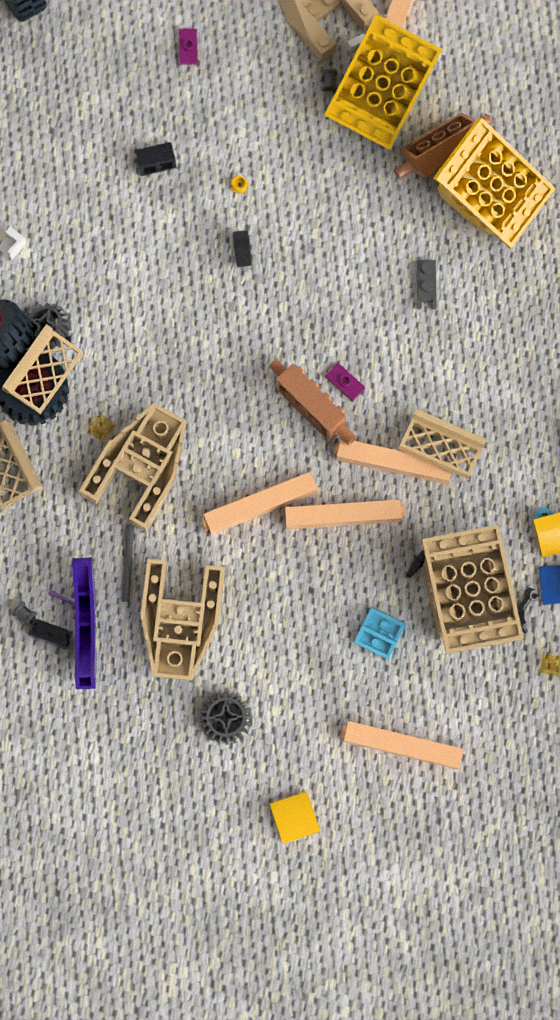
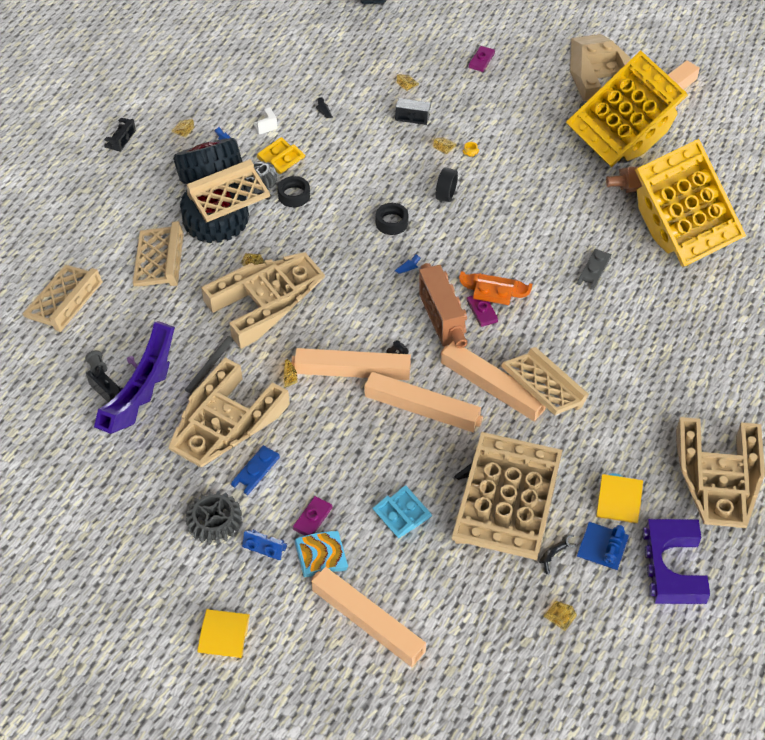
camera: 30 degrees right, 25 degrees down
(52, 280) = (281, 155): none -> yellow slope
(61, 195) = (323, 108): none -> black bar
(92, 337) = (297, 200): none -> black tyre
(127, 116) = (406, 82): none -> clear yellow slope
(207, 327) = (392, 228): none -> black tyre
(209, 188) = (444, 145): none -> clear yellow slope
(209, 541) = (290, 374): none -> clear yellow slope
(233, 651) = (256, 469): none -> blue hinge
(251, 362) = (408, 265): none -> blue bar
(273, 722) = (261, 544): none -> blue hinge
(293, 468) = (397, 345): none -> black plate
(307, 674) = (312, 516): none -> magenta plate
(334, 706) = (321, 551): none -> slope
(346, 353) = (494, 288): none -> orange plate

